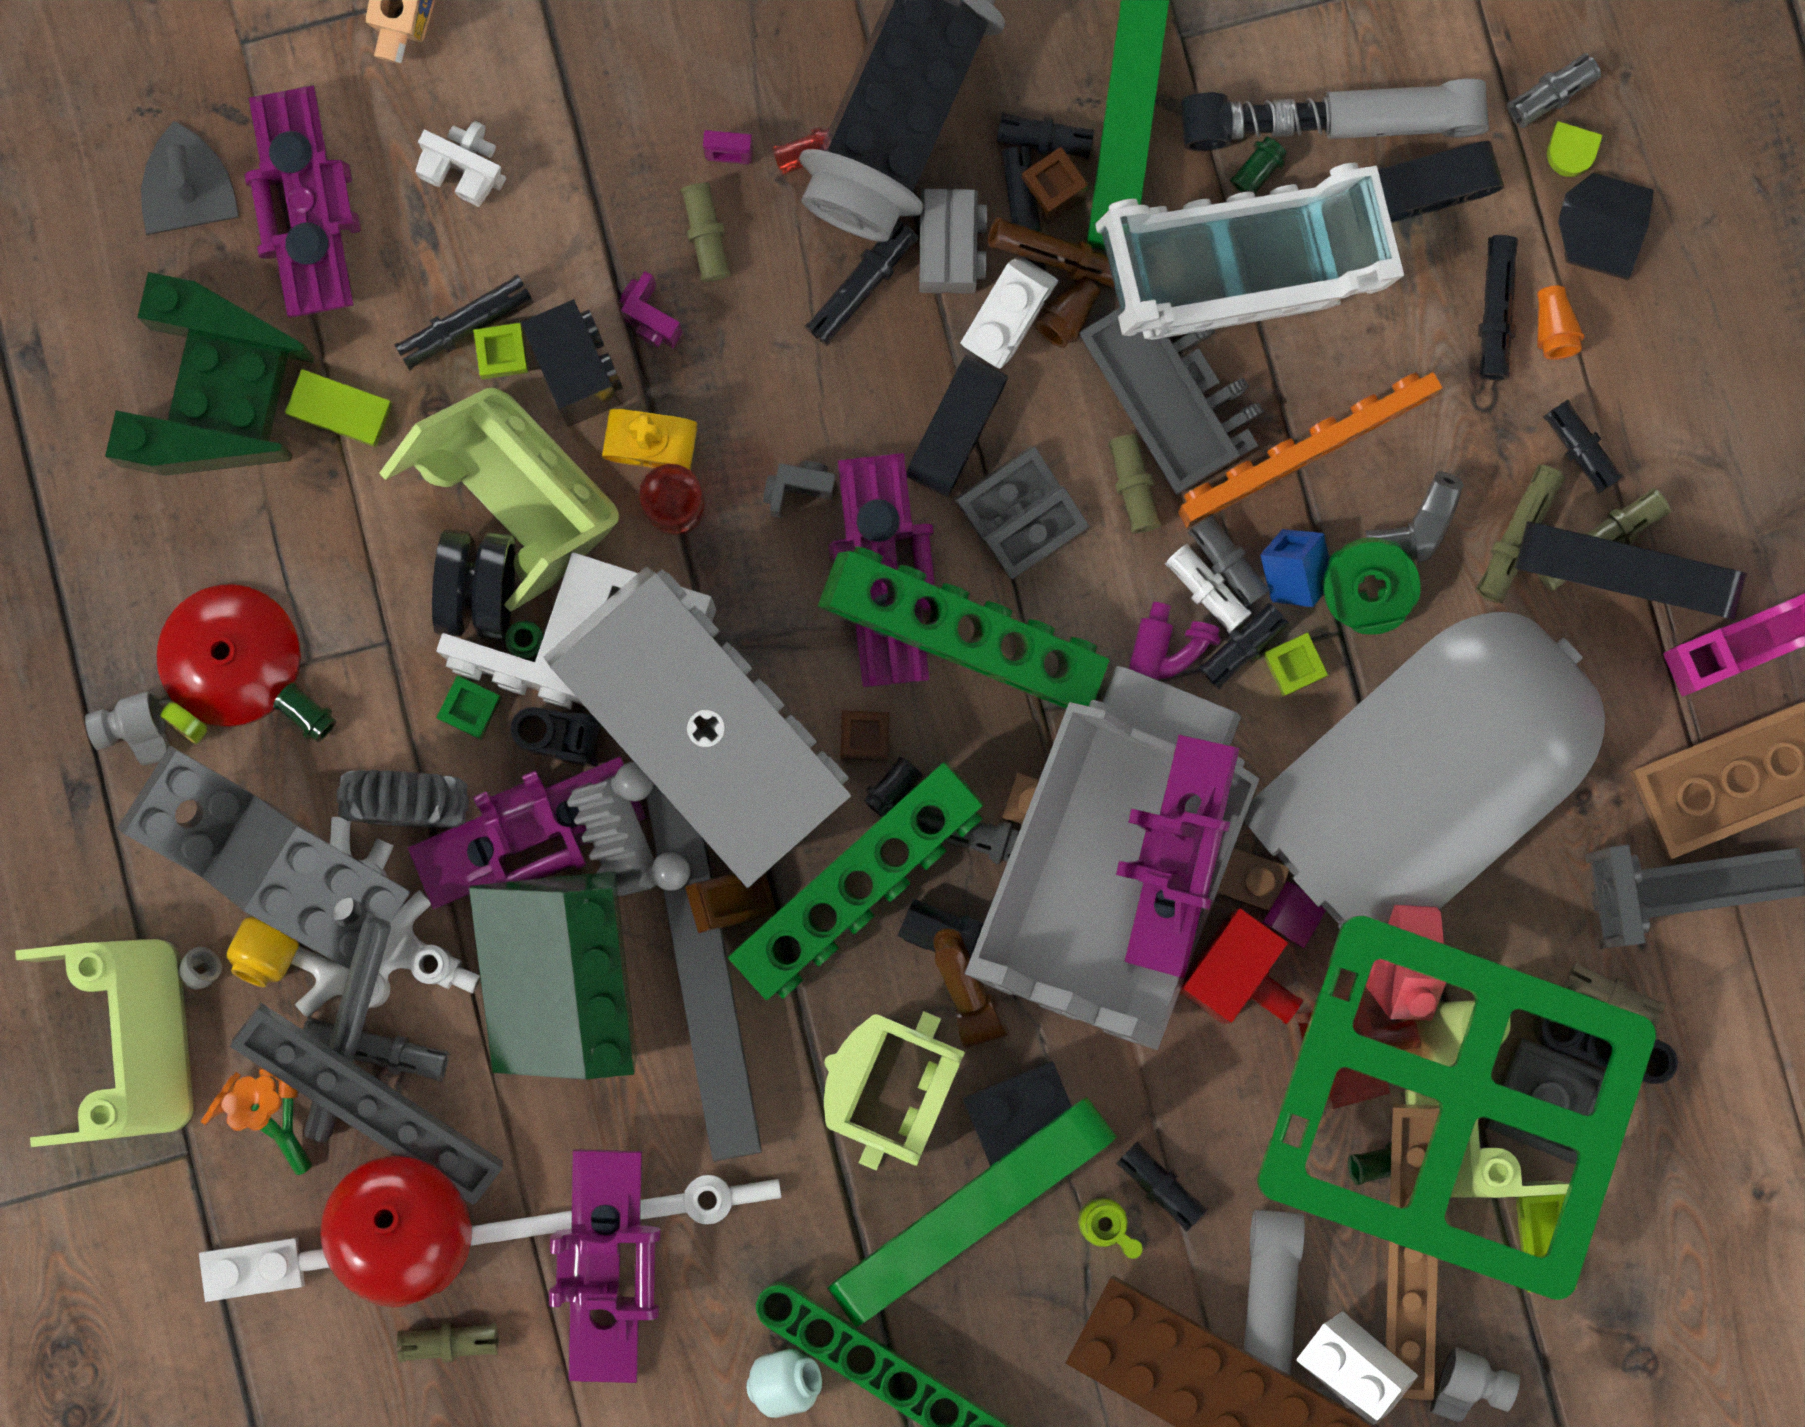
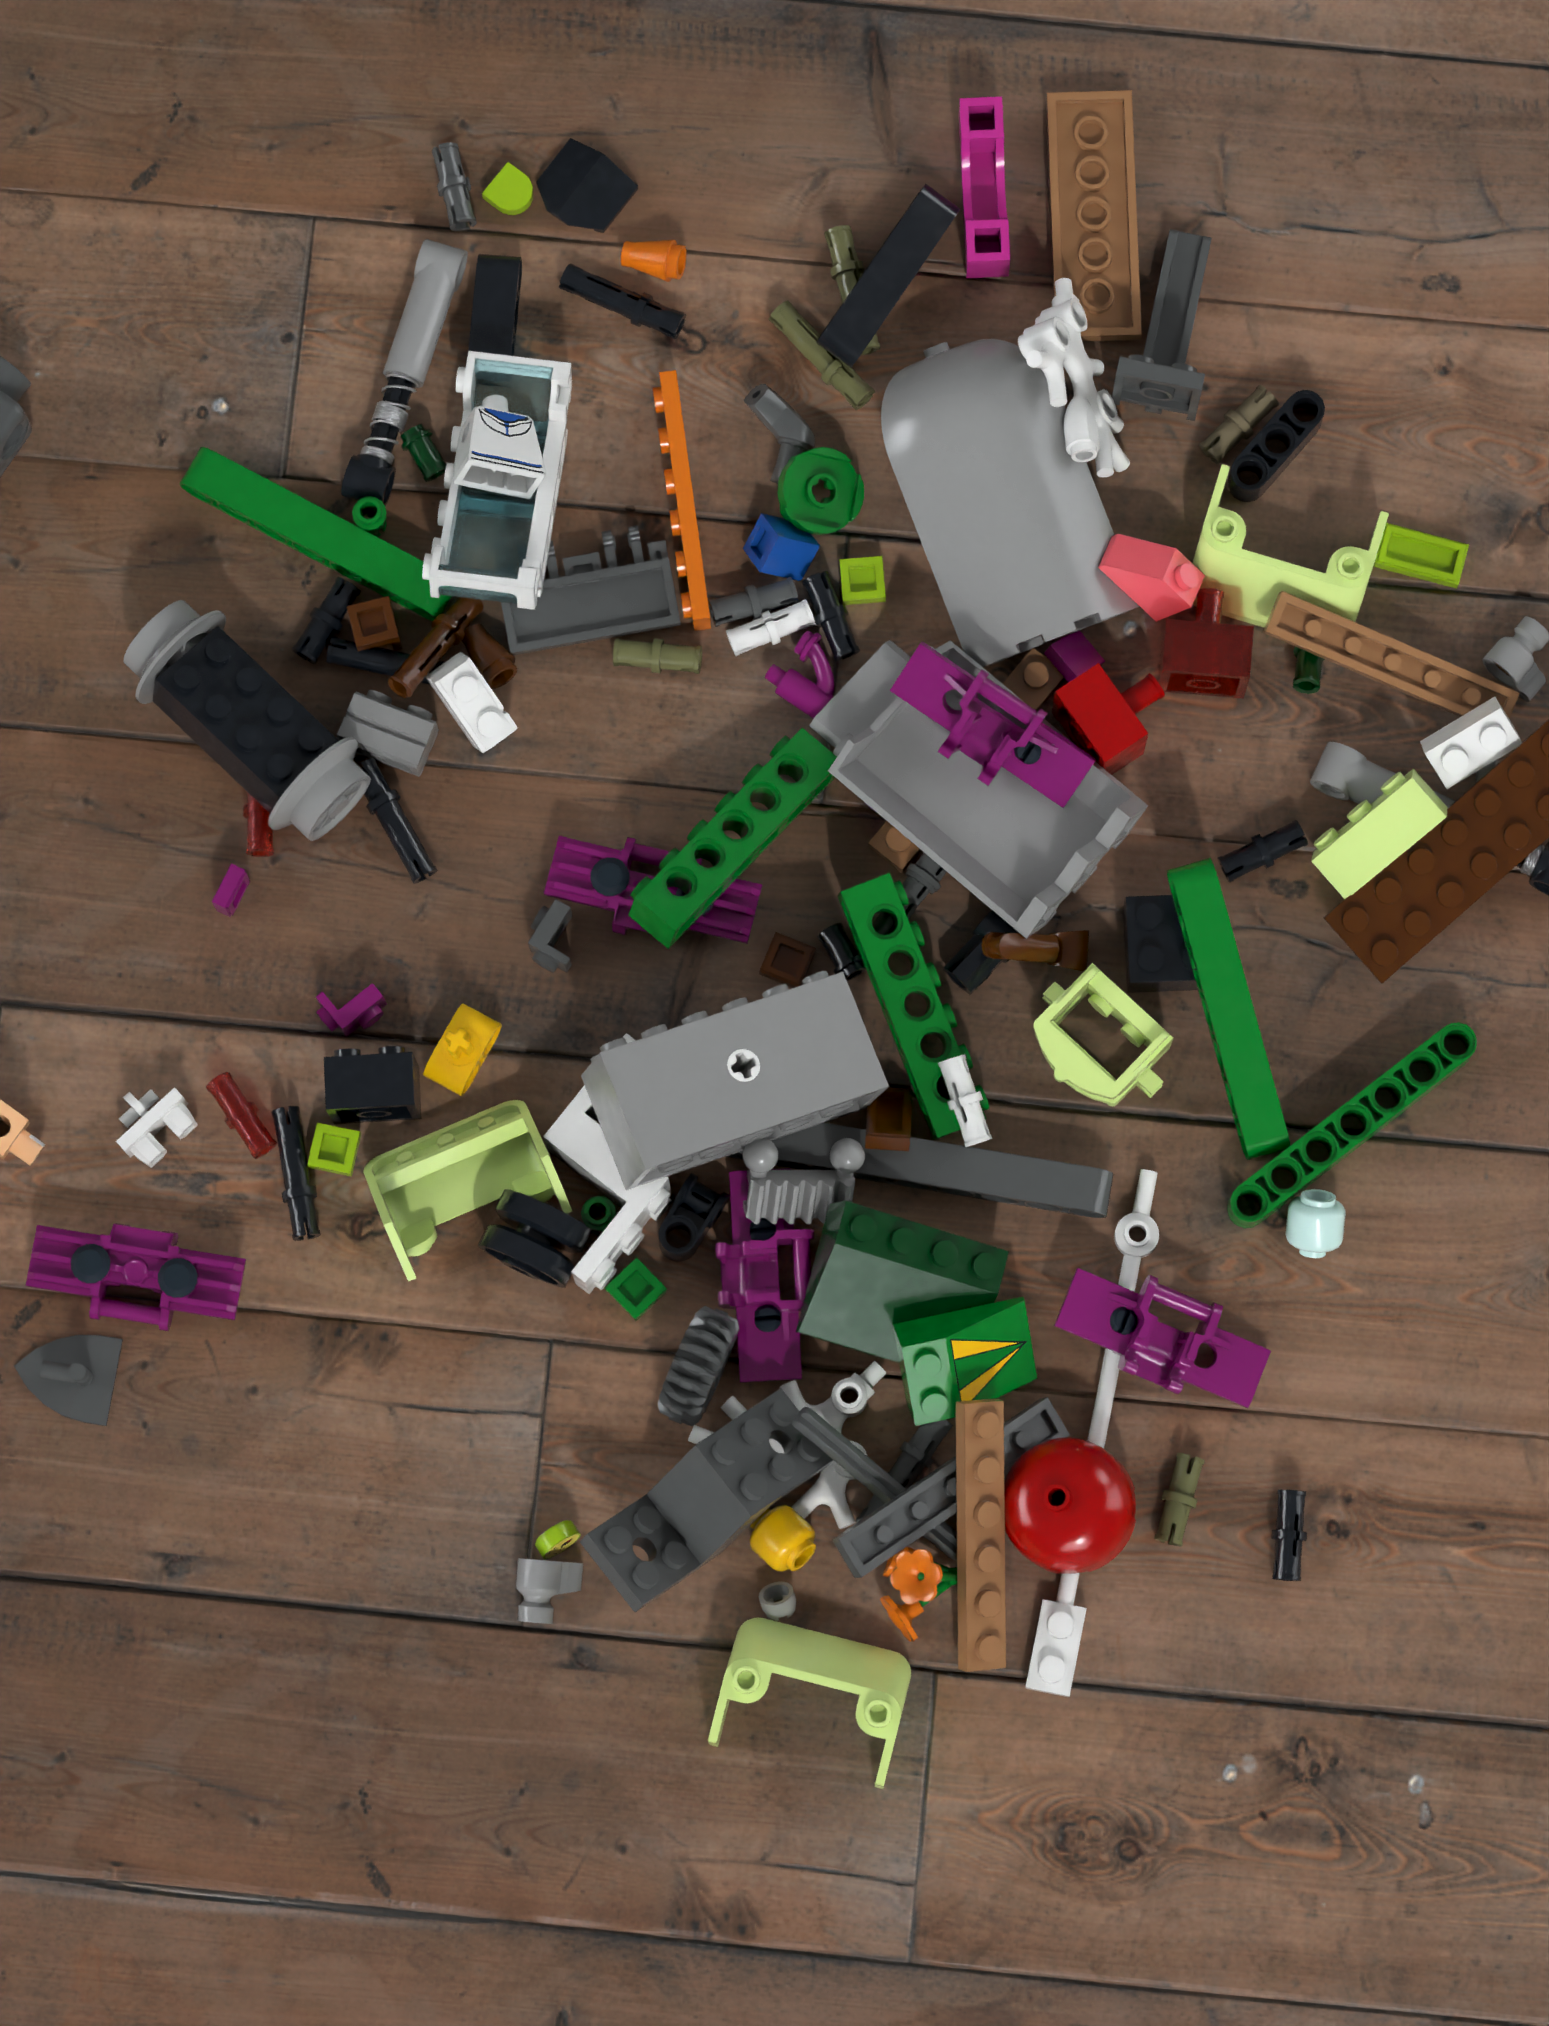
camera: 65 degrees left, 5 degrees down
(222, 389) = (273, 1402): dark green wedge -> none
(260, 659) = (518, 1514): red dish -> none
(305, 713) = (588, 1431): dark green pin -> none
(330, 1151) = (980, 1535): none -> medium nougat plate
(338, 408) = (329, 1309): lime tile -> none
(503, 245) = (241, 1115): none -> clear red pin
(506, 1068) = (964, 1357): none -> green slope
(672, 499) = (523, 1046): clear red wheel -> none
(705, 232) = (298, 937): olive pin -> none
(773, 972) = (965, 1100): none -> white pin
(956, 426) = (550, 784): black beam -> none
(1021, 512) = (645, 759): dark grey slope -> none
(1105, 1224) = (1278, 906): lime piece -> none
(1161, 129) = (373, 508): none -> green pin
(1221, 1304) = (1378, 832): none -> yellowish green brick
(1282, 237) = (499, 451): none -> white torso
(1464, 1095) = (1277, 567): green window -> none
(1551, 1079) = (1306, 510): dark grey tile -> none
(1563, 837) = (1091, 414): none -> white plant
(1583, 446) = (767, 276): black pin -> none

